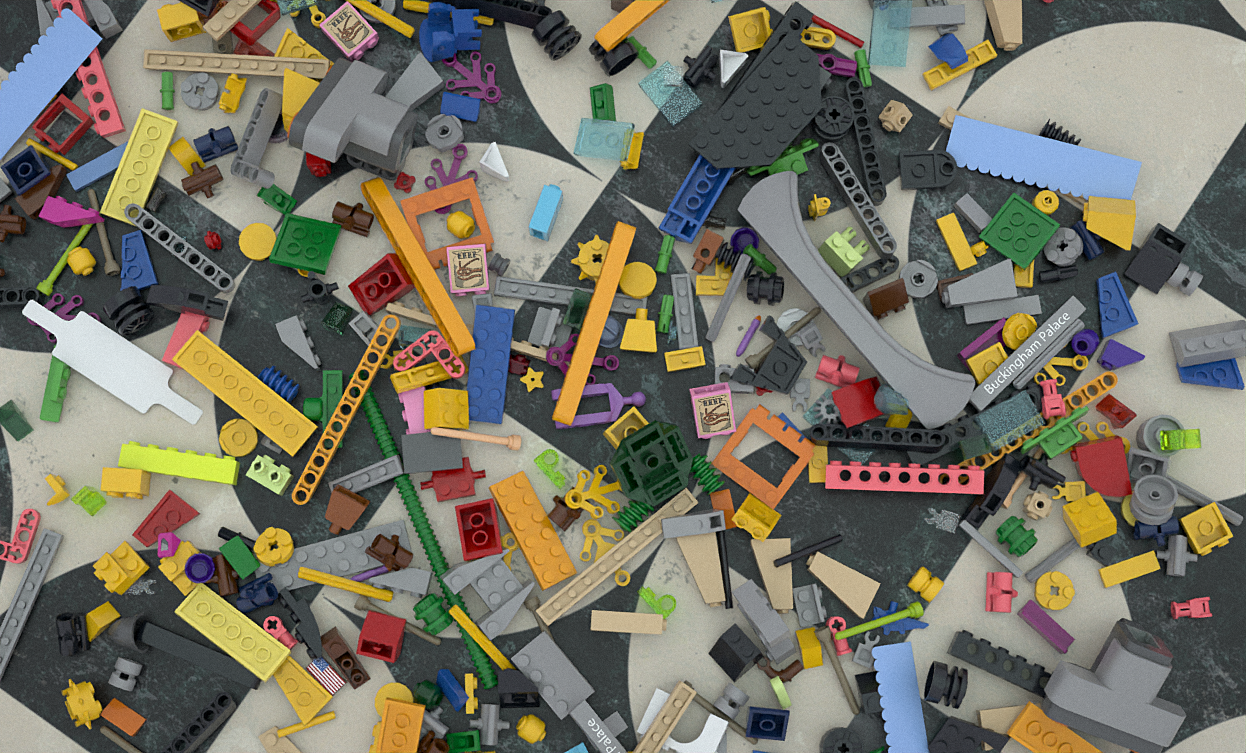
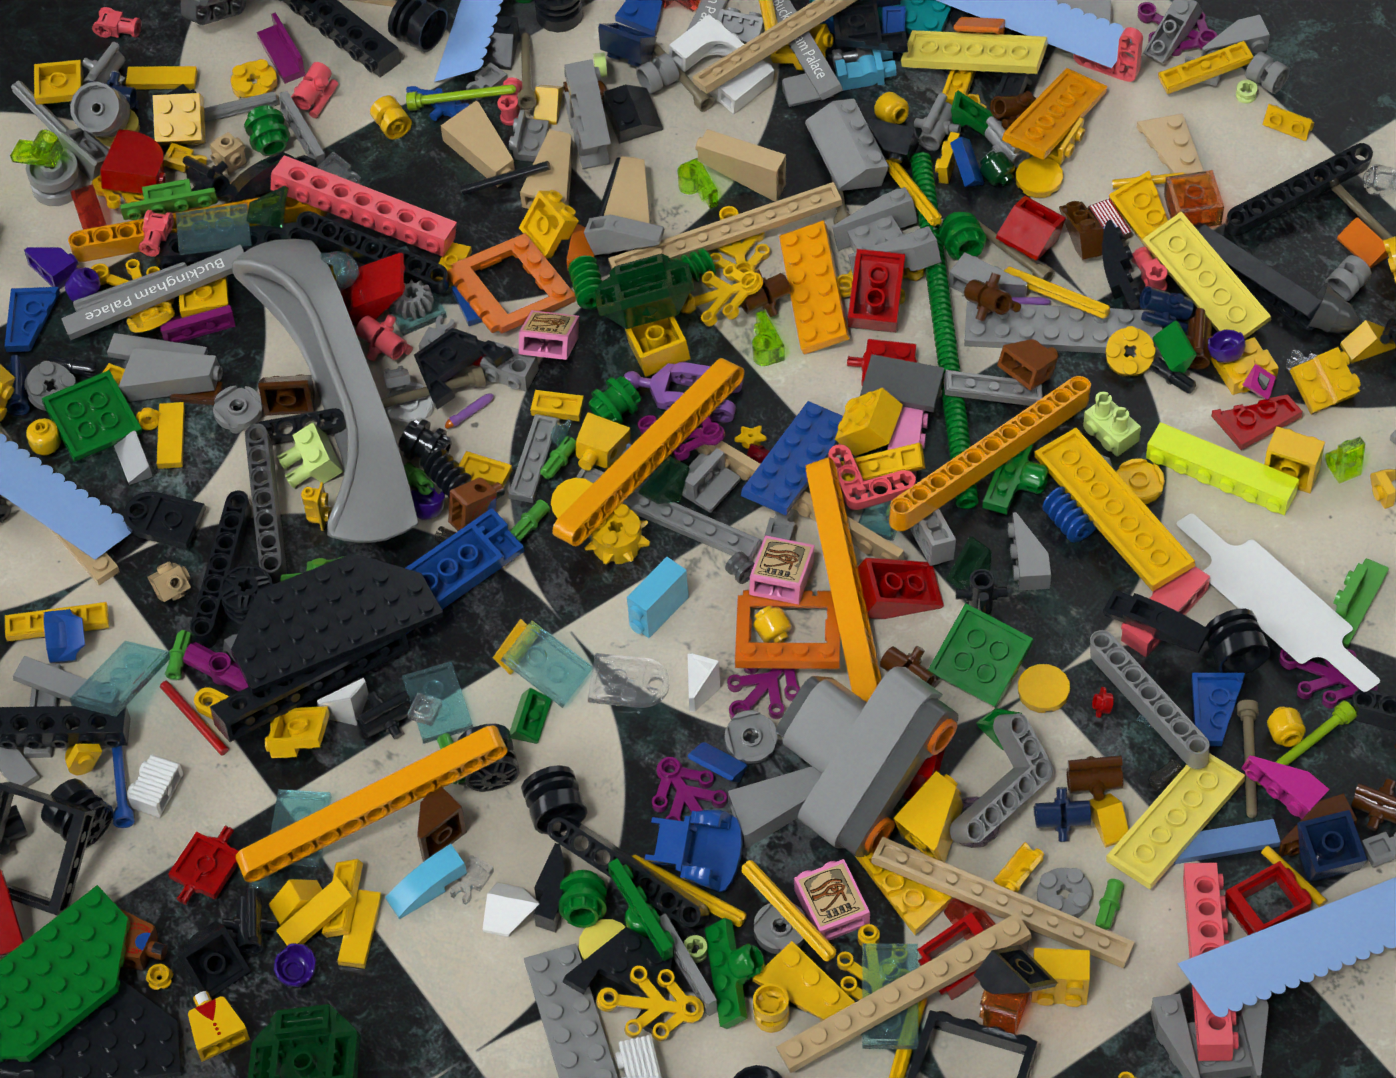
camera: 155 degrees left, 25 degrees down
(262, 709) = (1195, 197): none -> clear orange brick
(512, 441) = (801, 379): light nougat piece -> none
(547, 149) = (626, 681): none -> clear plate
(642, 370) = (615, 400): none -> green piece
(728, 297) = (474, 437): light grey axle -> none

